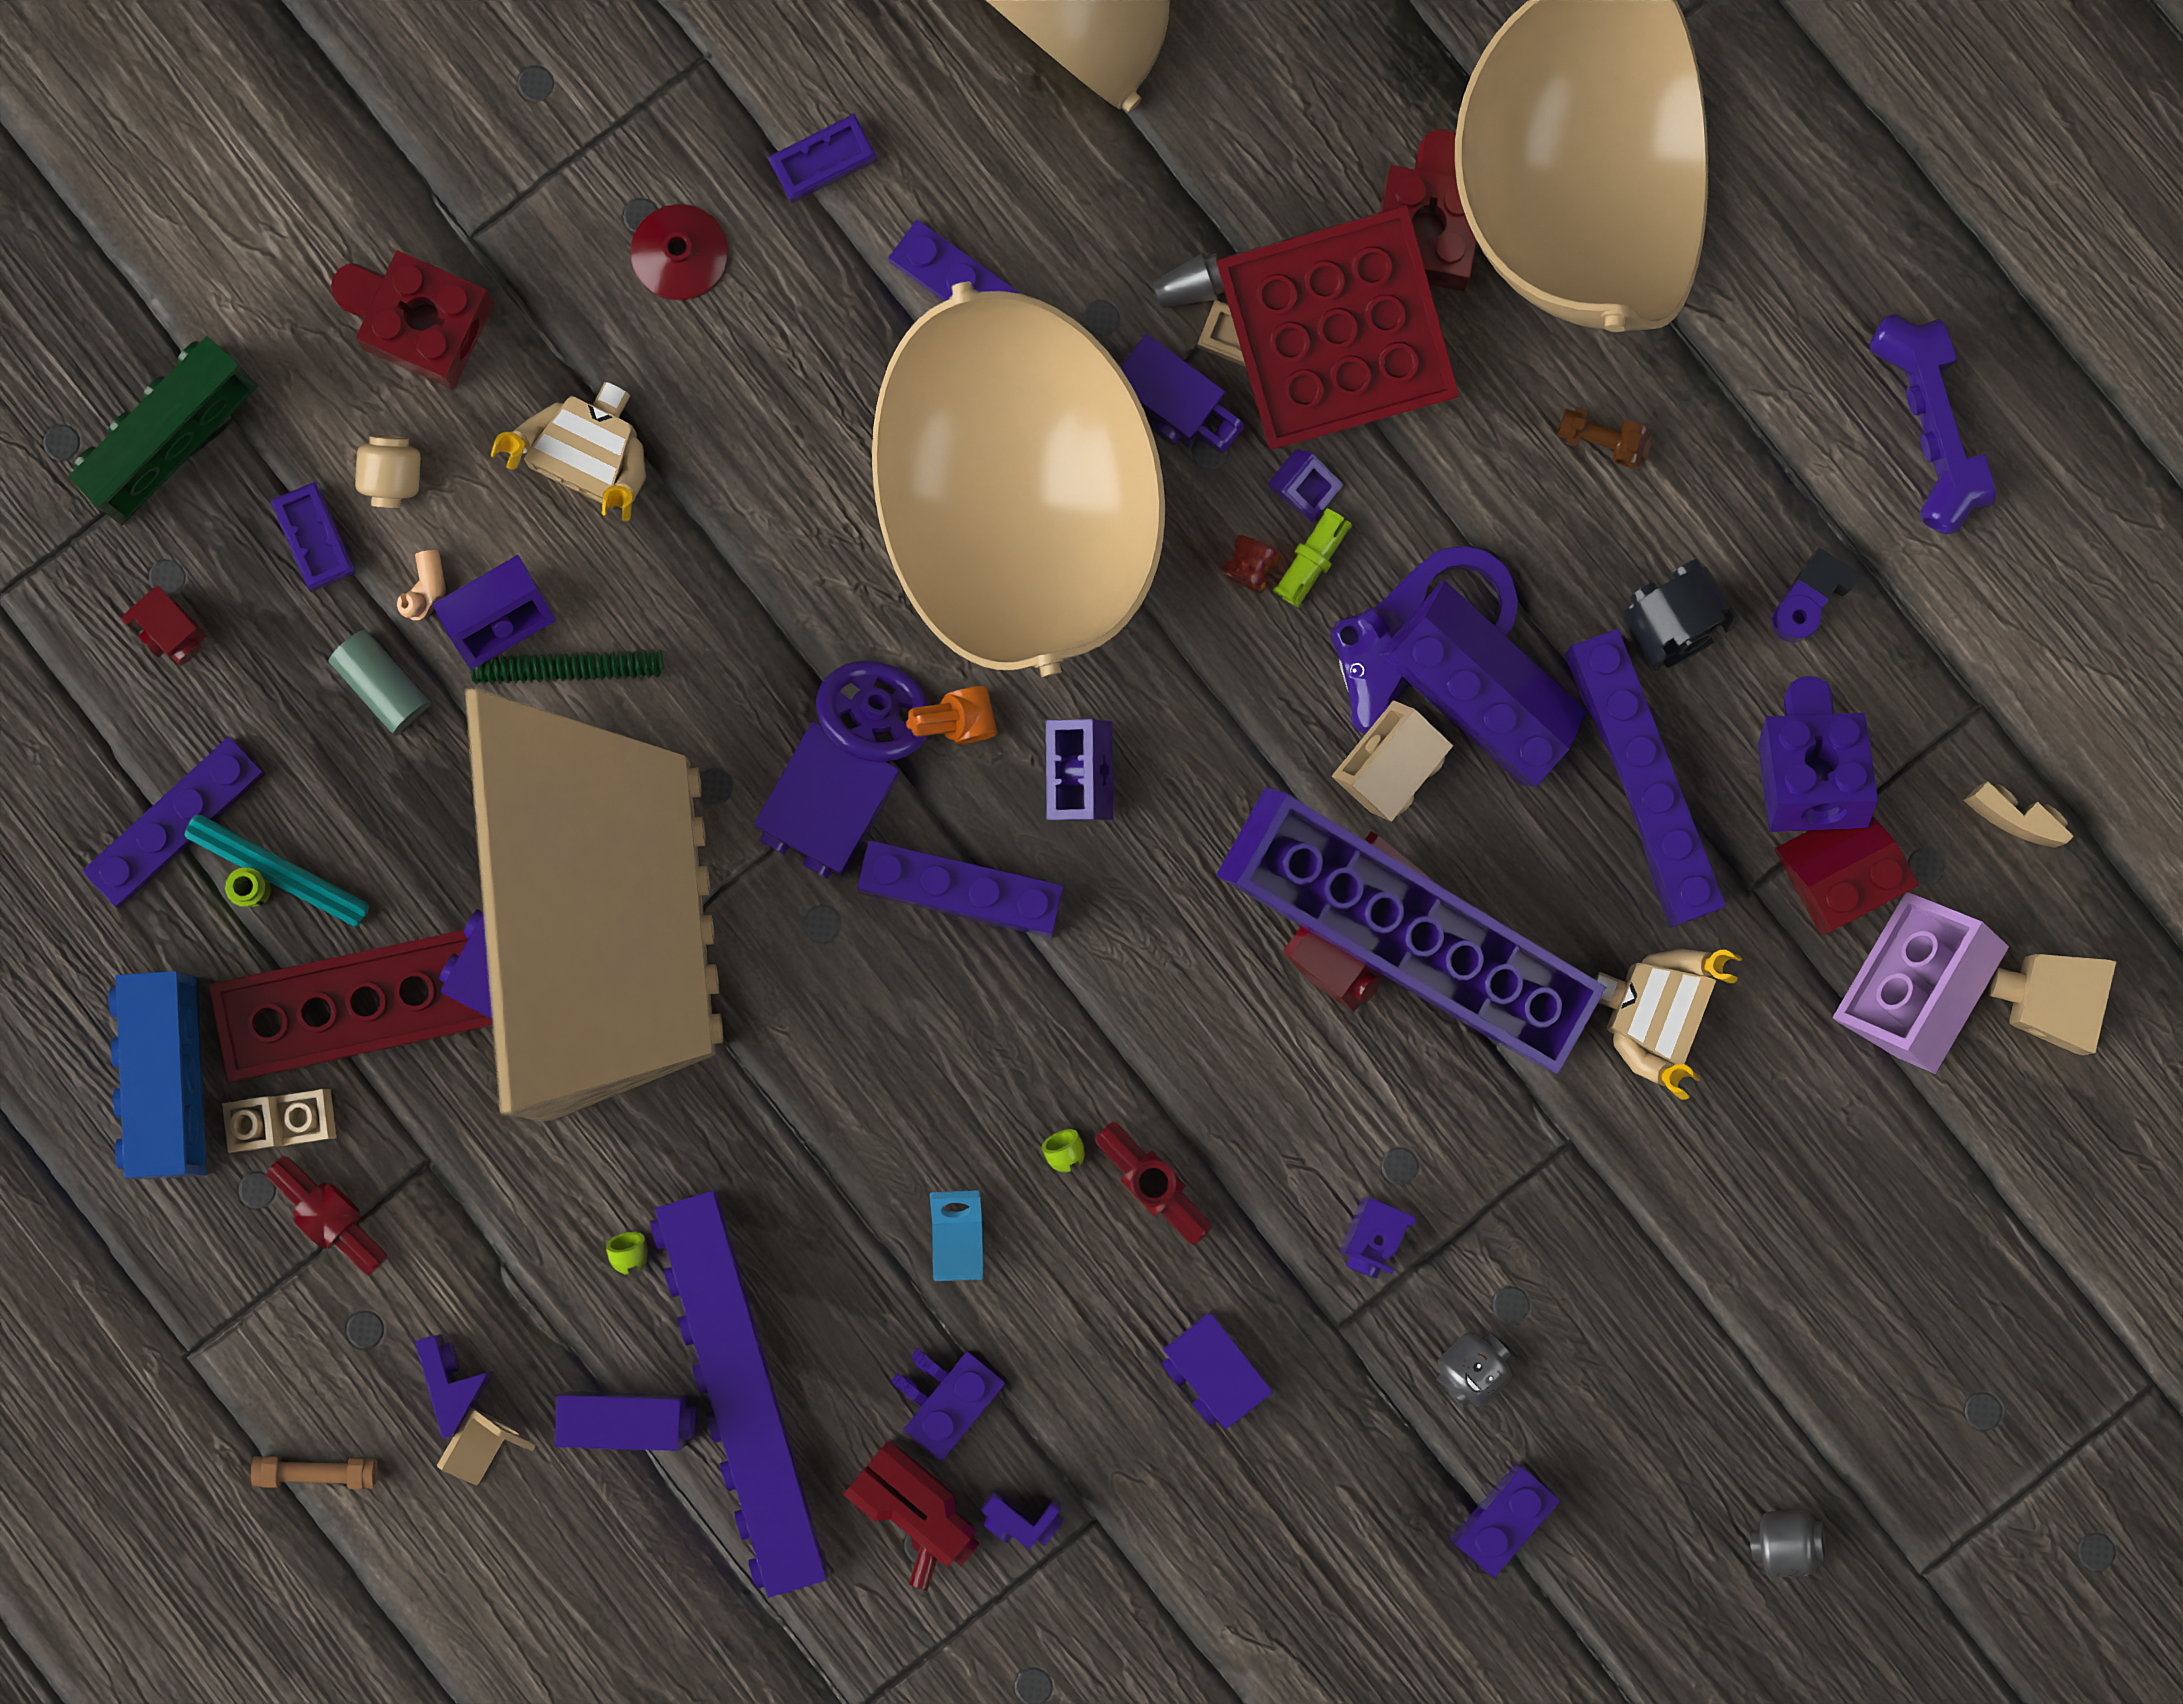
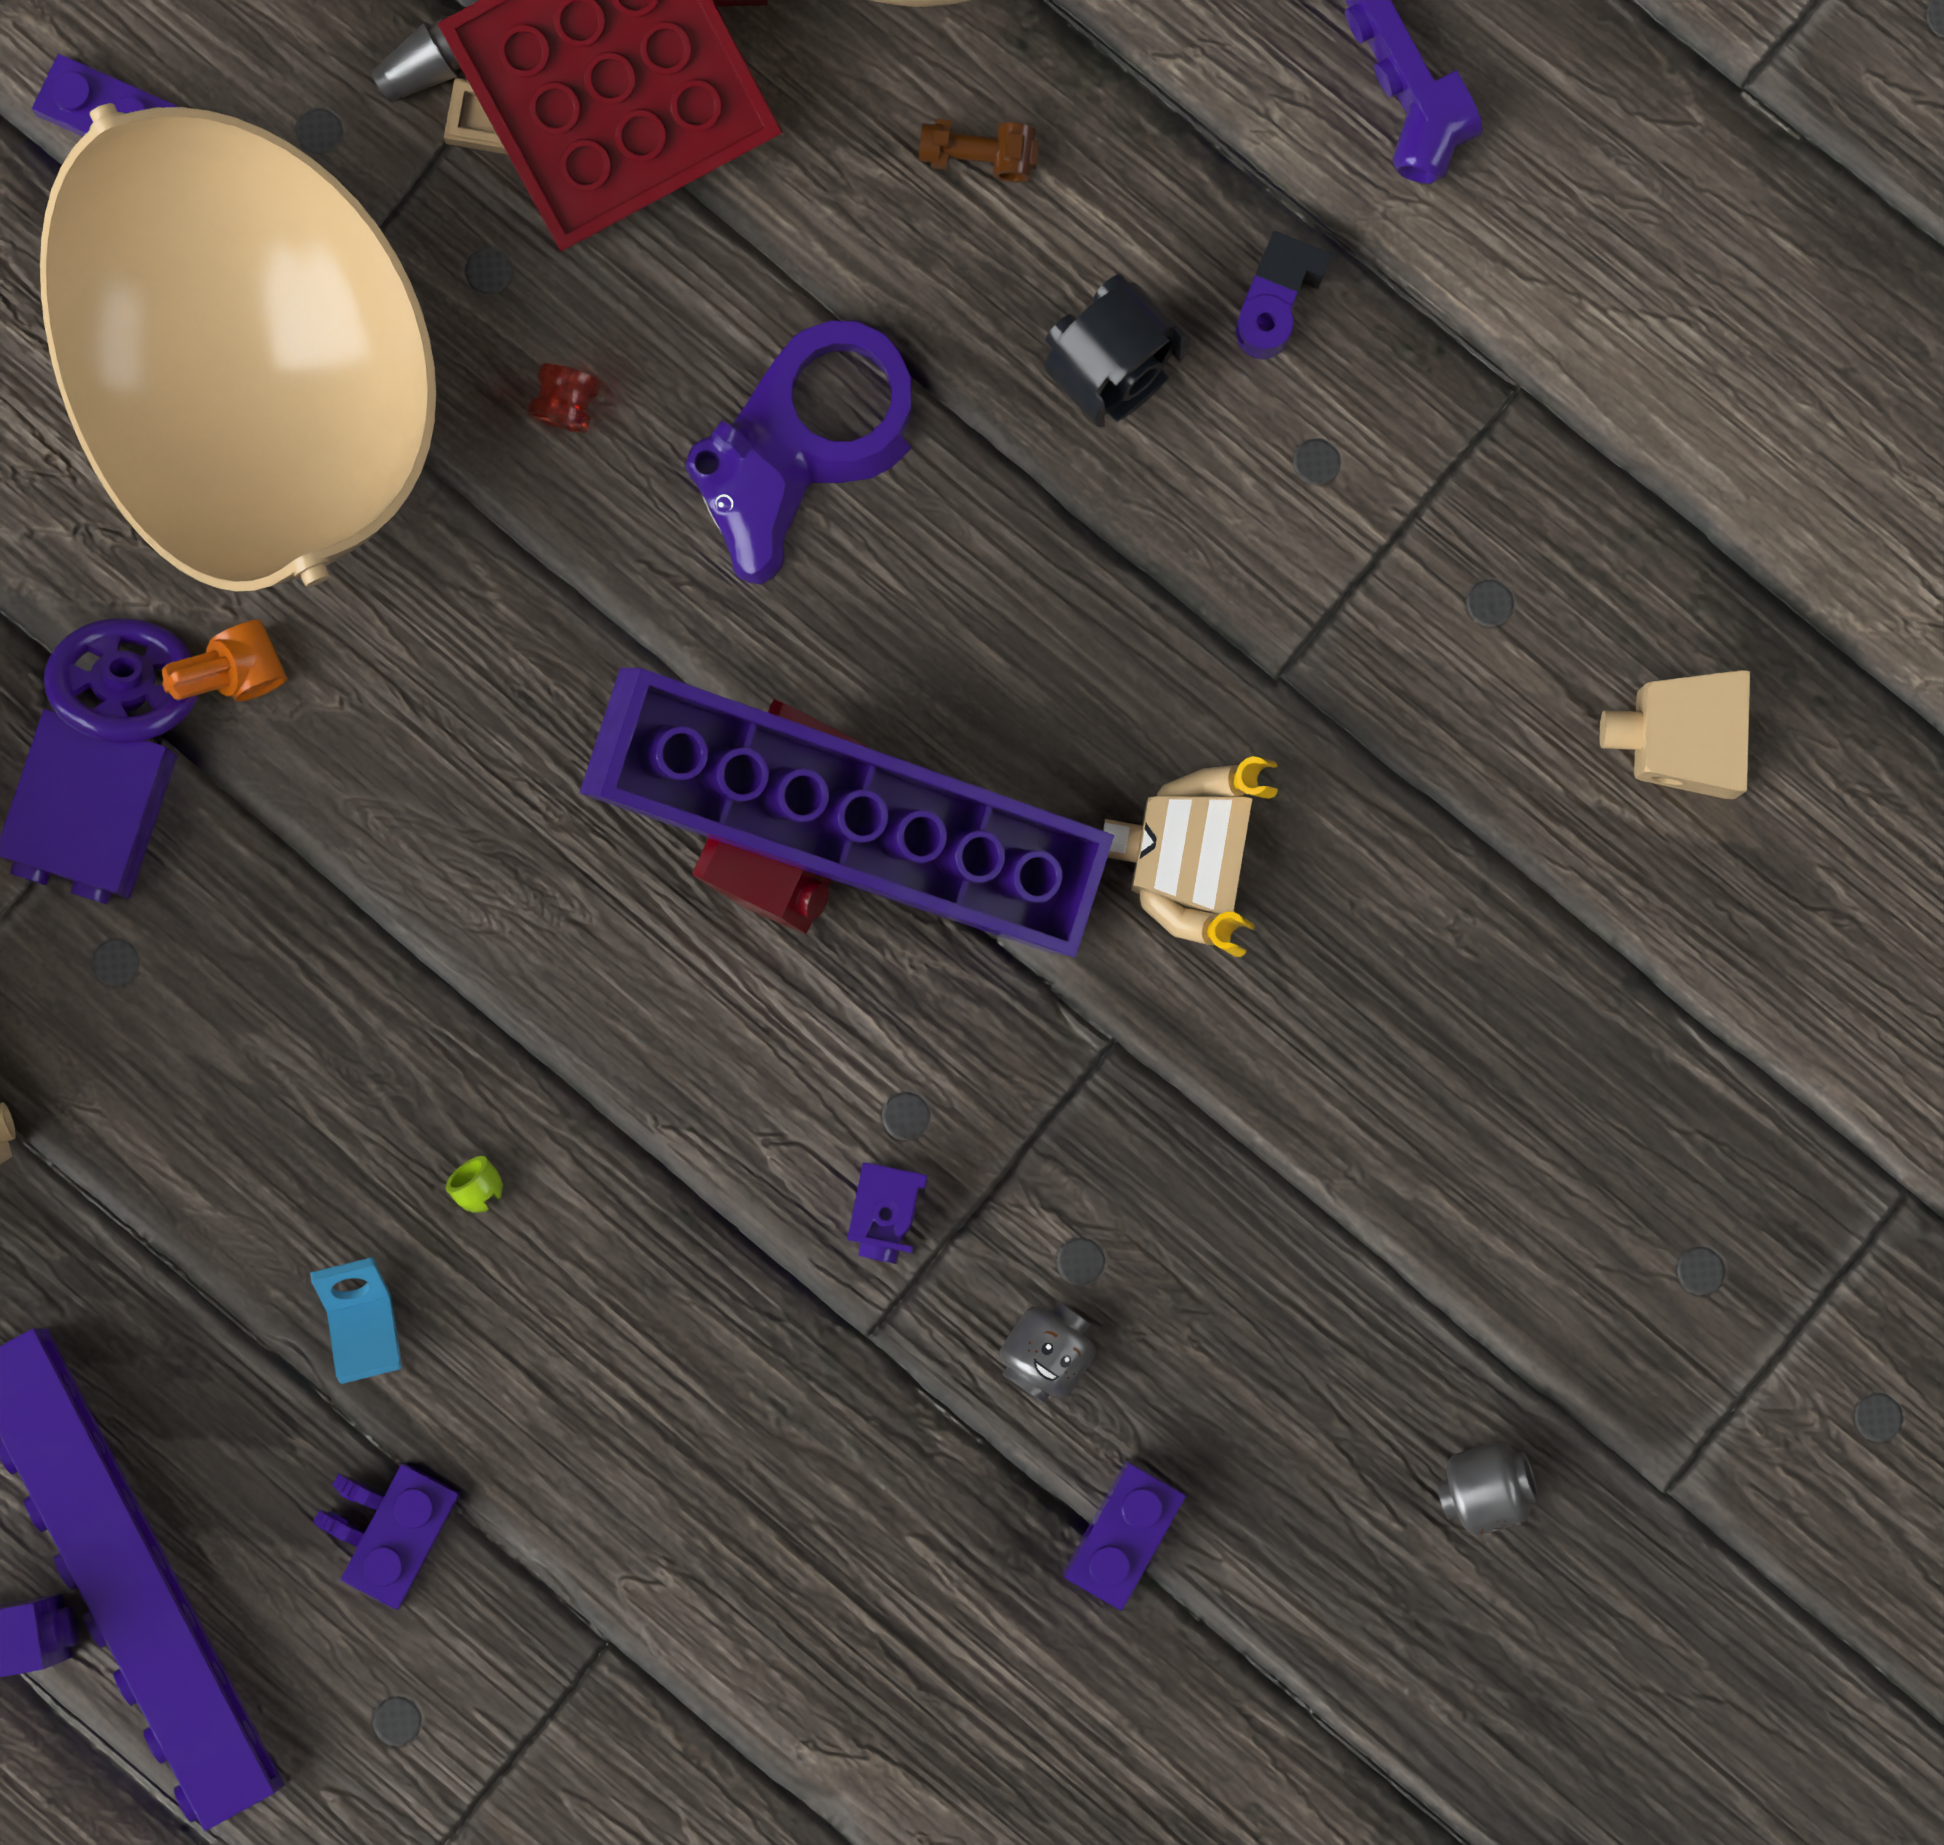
camera: 10 degrees left, 0 degrees up
(939, 1535) = (378, 1672): dark red piece -> none
(960, 889) = (276, 882): dark purple brick -> none
(1010, 1521) = (493, 1667): dark purple bracket -> none
(1079, 770) = (396, 700): dark purple brick -> none
(1173, 1203) = (567, 1181): dark red axle -> none
(1178, 397) = (429, 208): dark purple brick -> none
(1216, 1372) = (720, 1424): dark purple brick -> none
(1305, 484) = (616, 285): dark purple slope -> none
(1312, 557) = (642, 375): lime pin -> none
(1393, 761) = (792, 608): tan brick -> none
(1485, 685) = (888, 488): dark purple slope -> none
(1657, 803) = (1115, 563): dark purple arch -> none
(1816, 763) = (1324, 501): dark purple brick -> none
(1845, 872) = (1389, 626): dark red slope -> none
(1921, 981) = (1513, 747): lavender slope -> none
(2034, 823) = (1616, 522): tan slope -> none

